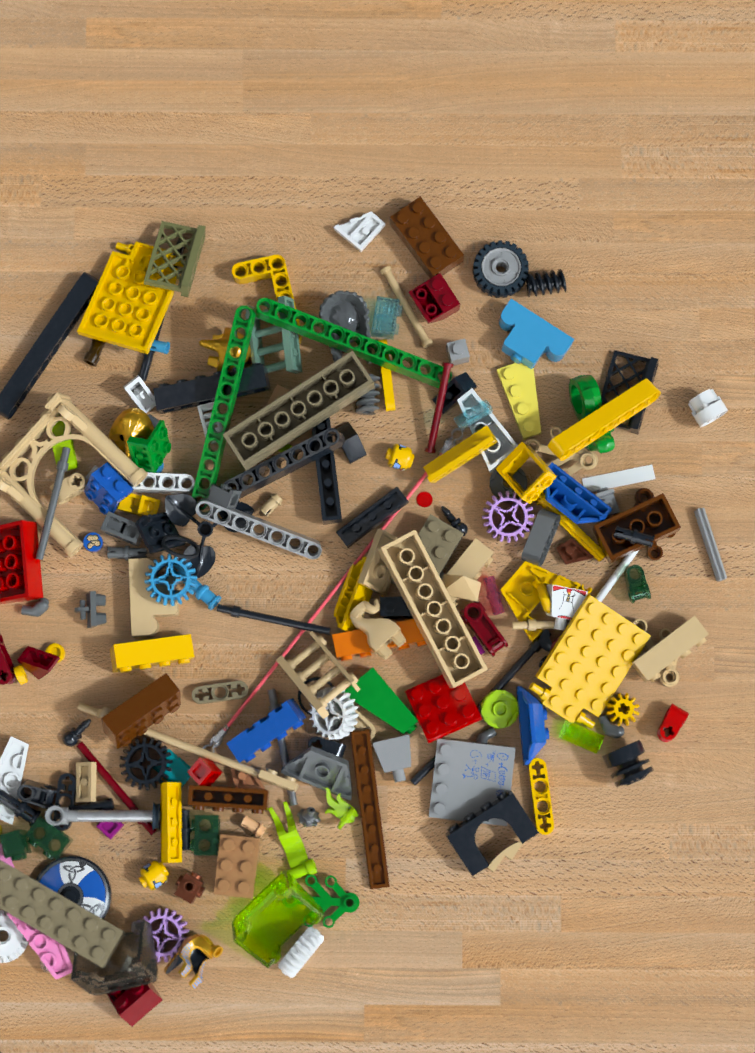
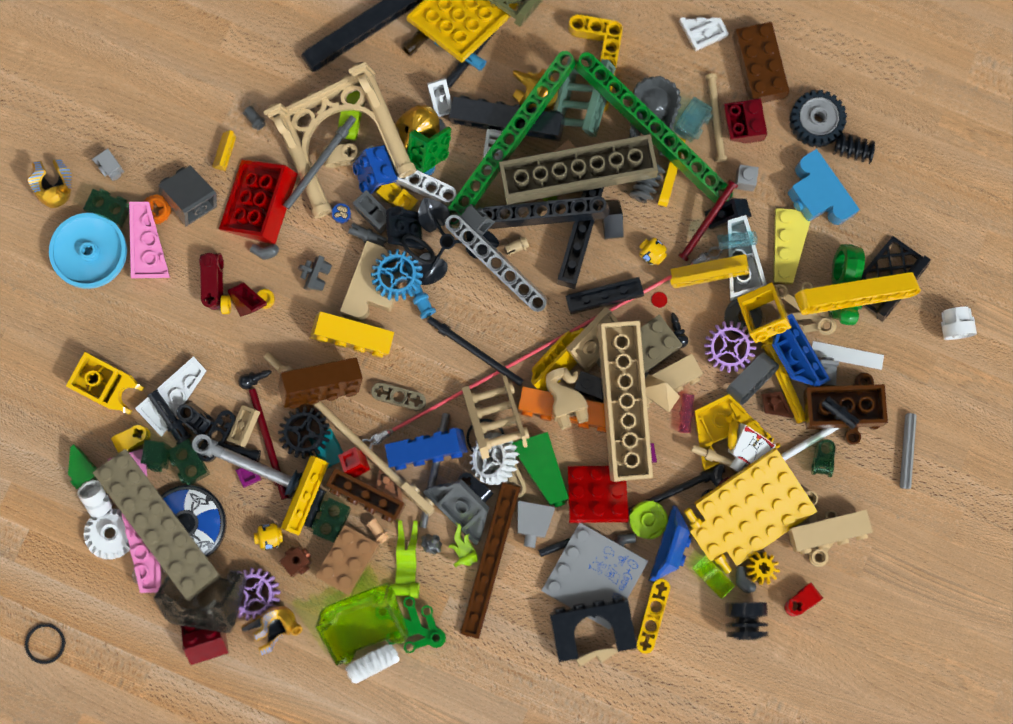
camera: 20 degrees right, 0 degrees up
(484, 628) = (664, 439): dark red piece -> none

